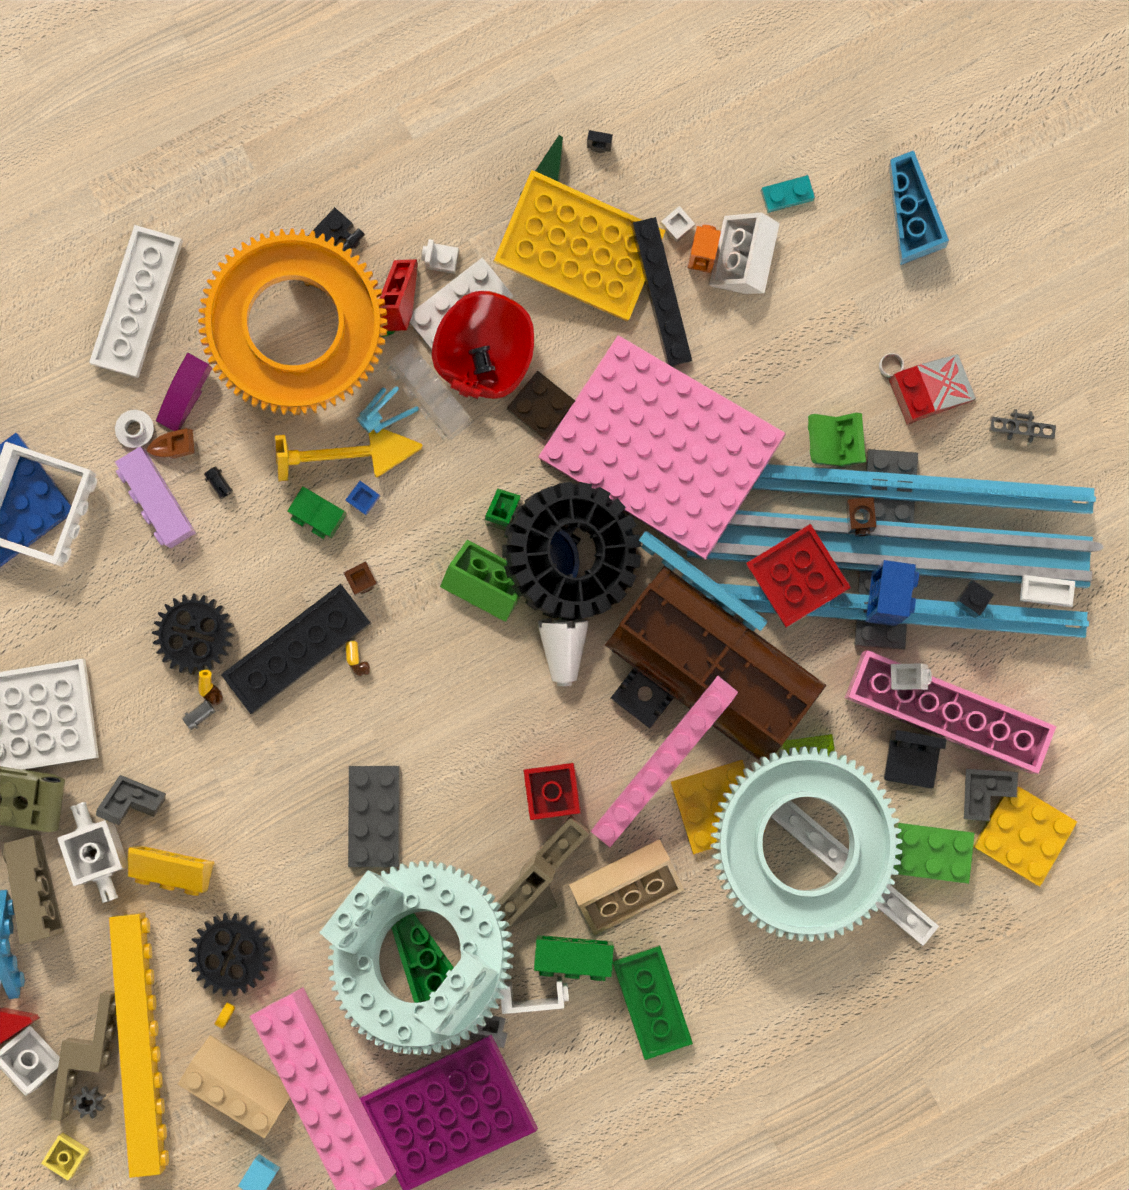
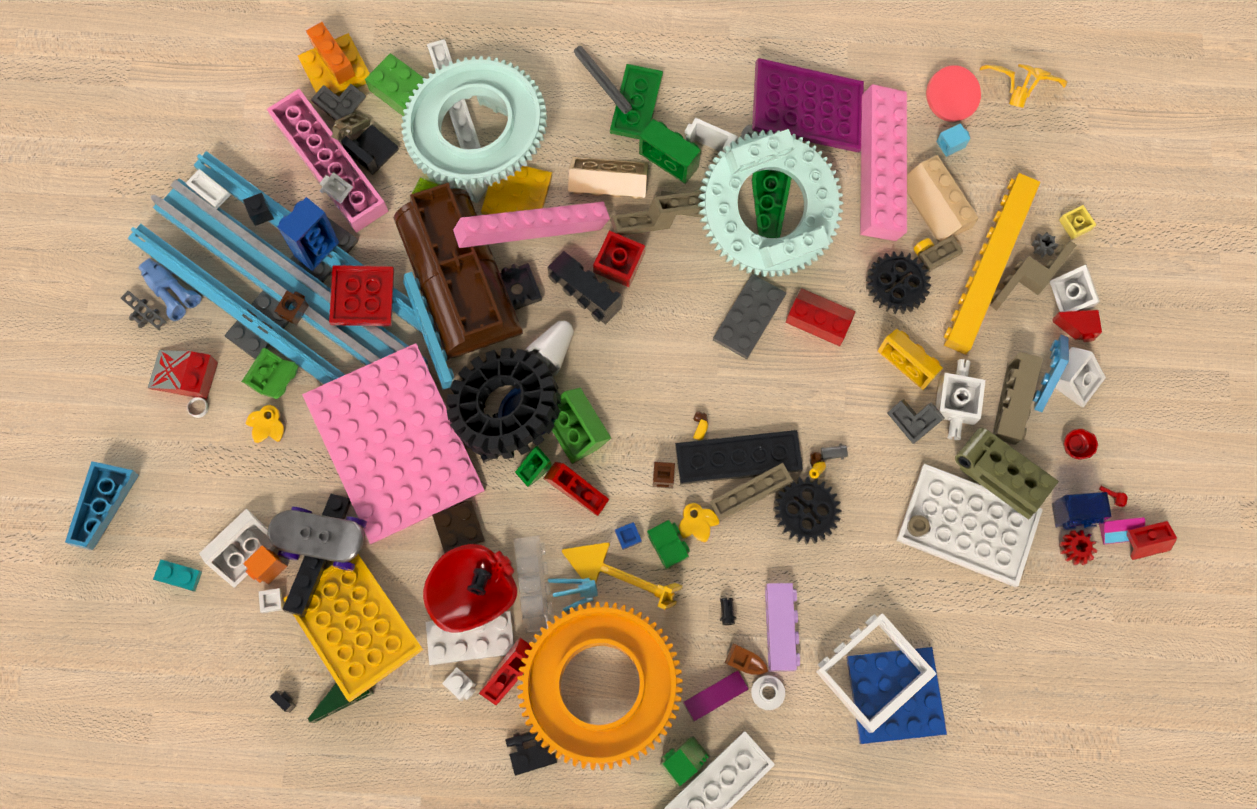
camera: 150 degrees left, 10 degrees down
(67, 683) = (918, 526): none -> dark tan tile
(174, 304) = (684, 761): none -> green wedge
(201, 1020) = (940, 253): none -> dark tan plate
(260, 617) = (751, 491): none -> dark tan plate
(295, 863) = (820, 317): none -> red slope
(298, 552) = (700, 524): none -> yellow plate
(446, 514) = (576, 488): none -> red slope
(571, 737) = (585, 288): none -> black wedge
(669, 305) = (317, 536): none -> flat silver piece
(708, 1005) = (602, 79): none -> dark grey axle
(808, 386) = (265, 427): none -> yellow plate
(952, 767) = (349, 125): none -> dark tan hinge
(1028, 469) = (160, 280): none -> medium blue piece
(1036, 841) = (330, 53): none -> orange brick

